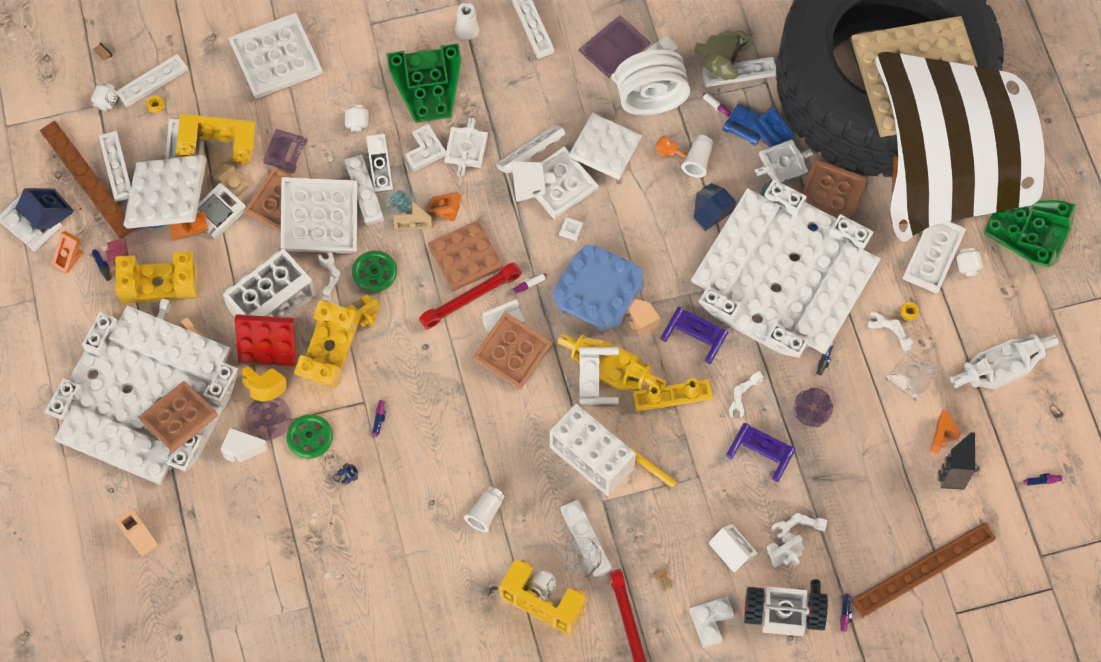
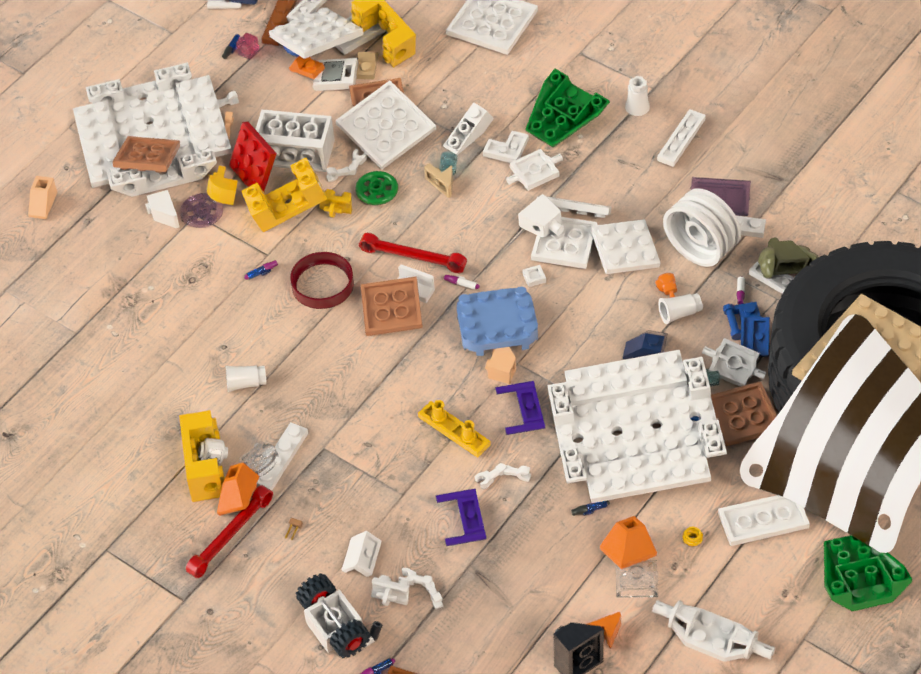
camera: 55 degrees right, 15 degrees down
(66, 252) = (221, 21): orange slope -> none
(136, 281) = (235, 72): yellow plate -> none
(279, 148) = (419, 72): plate -> none
(318, 449) = (207, 245): green plate -> none
(350, 472) = (200, 281): dark blue plate -> none
(356, 118) = (489, 94): white head -> none
(365, 192) = (434, 142): white plate -> none
(434, 353) = (322, 258): none -> dark red piece
(445, 206) = (472, 192): orange slope -> none
(465, 255) = (444, 229): nougat plate -> none
(590, 375) = (415, 363): white plate -> none
(592, 450) = (351, 403): white brick -> none
(602, 595) = (237, 489): none -> orange slope
(615, 369) = (441, 370): yellow plate -> none
(654, 470) = (380, 458): yellow bar -> none
(706, 617) = (280, 579): white plate -> none
(816, 417) = (536, 537): clear purple plate -> none
(887, 358) = (628, 543): none -> orange slope
(905, 342) = (668, 534): white piece -> none
(969, 262) = (781, 546): white head -> none

